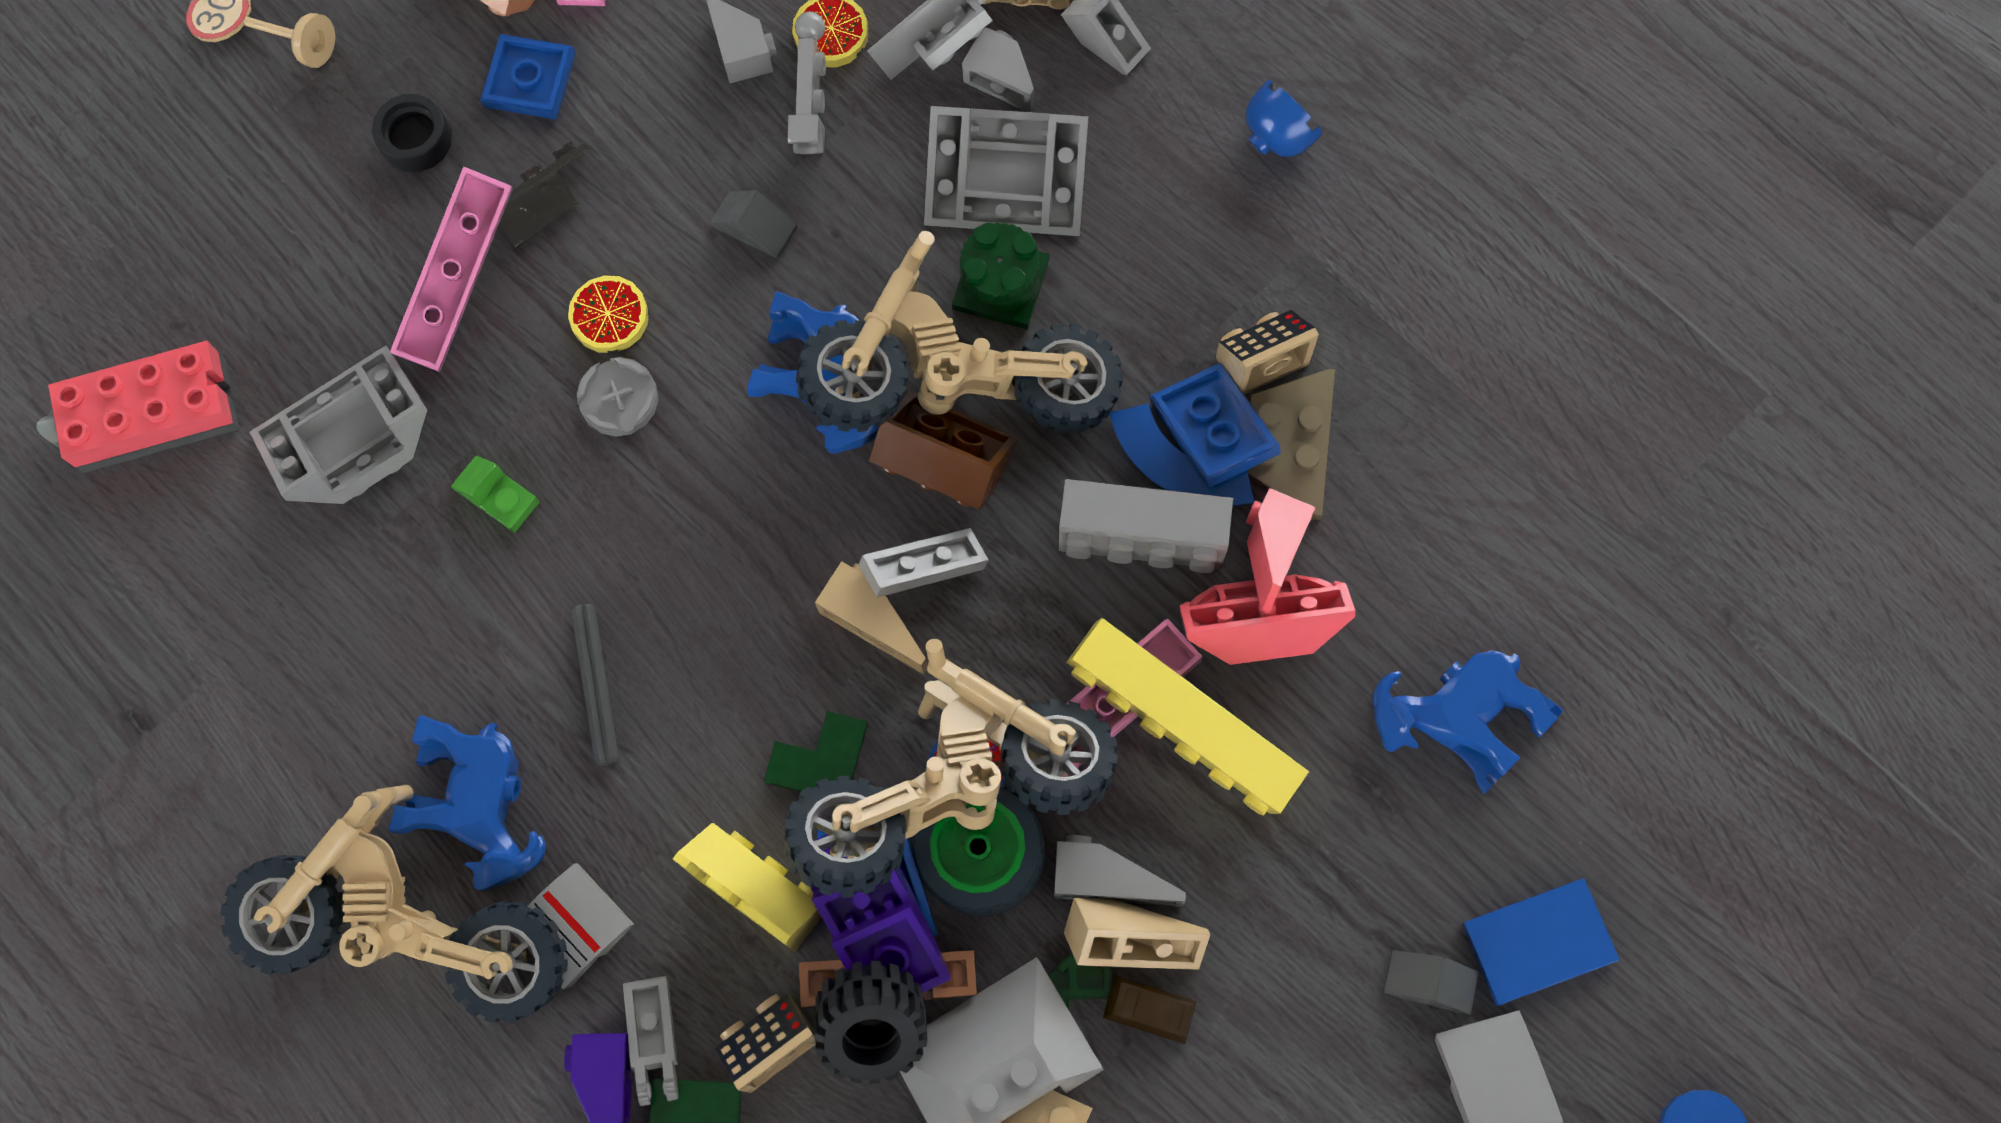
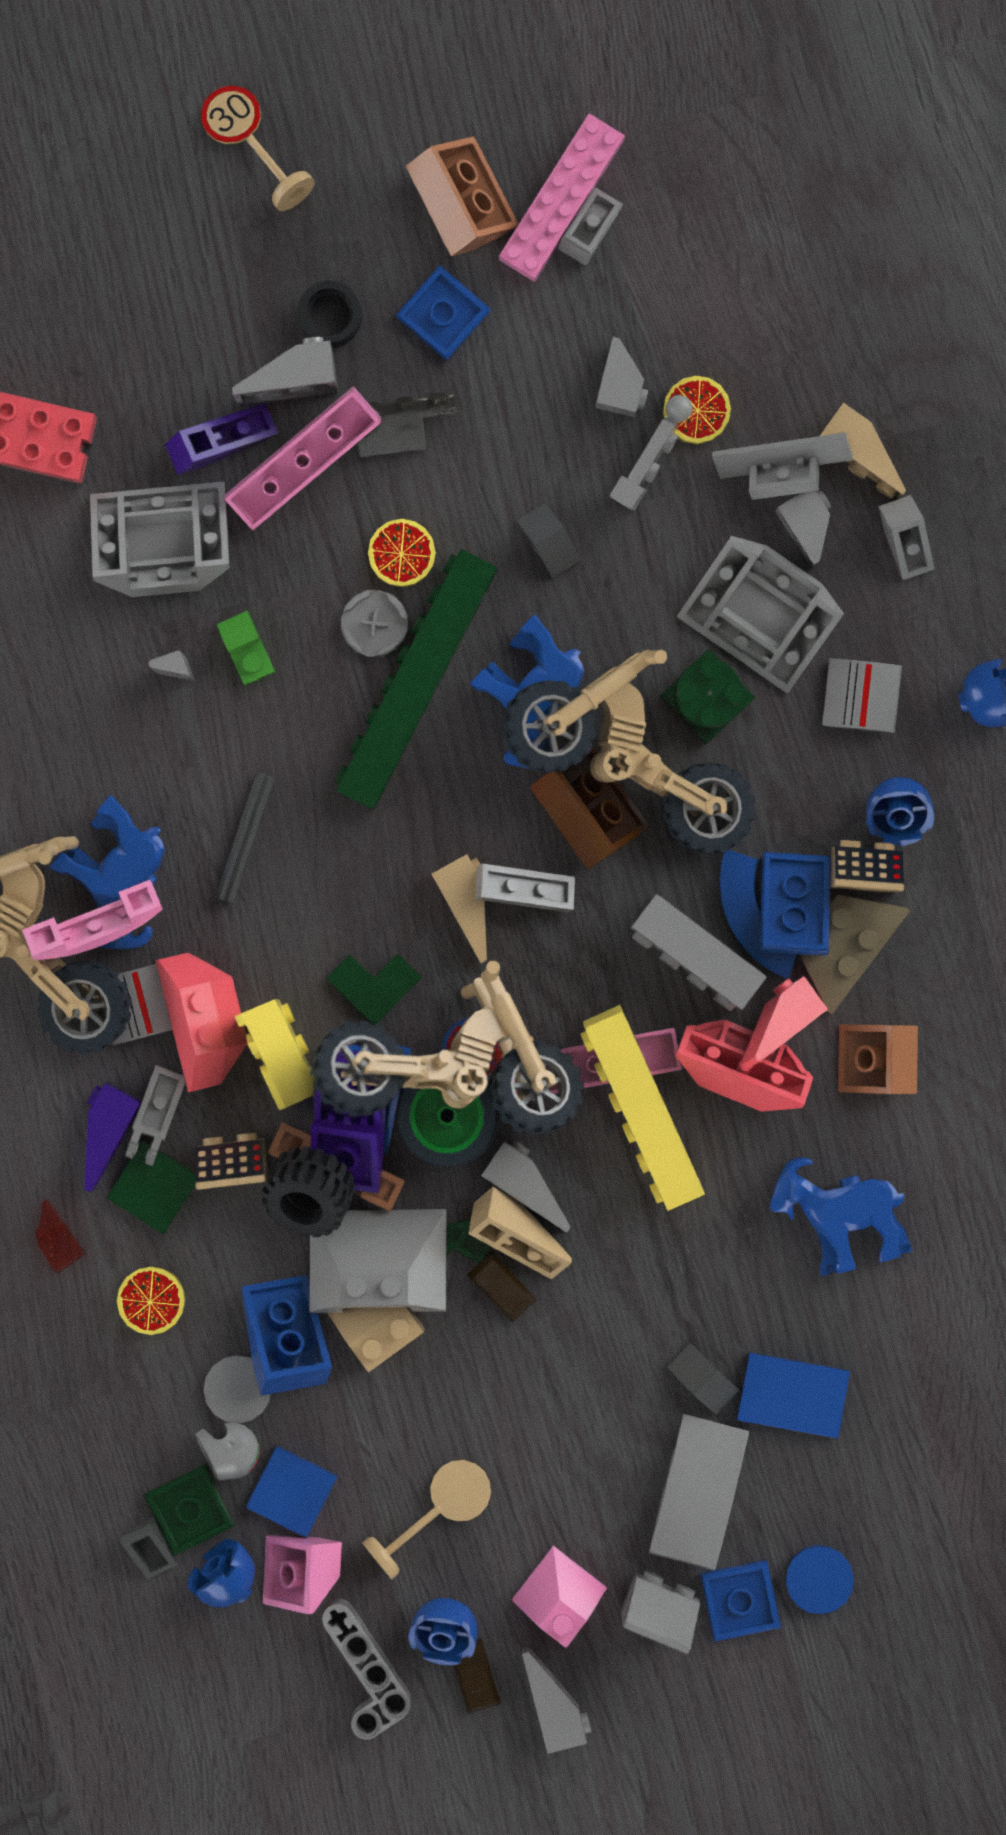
camera: 30 degrees right, 15 degrees up
(355, 304) = (220, 438): none -> dark purple slope
(395, 202) = (297, 373): none -> light grey slope
(418, 545) = (173, 665): none -> light grey slope
(470, 864) = (95, 927): none -> bright pink slope
(651, 903) = (202, 1018): none -> coral wedge
(690, 426) = (416, 680): none -> dark green brick
(1154, 195) = (862, 695): none -> light grey slope
(1263, 274) = (899, 811): none -> blue cylinder
(1398, 531) = (878, 1059): none -> nougat slope

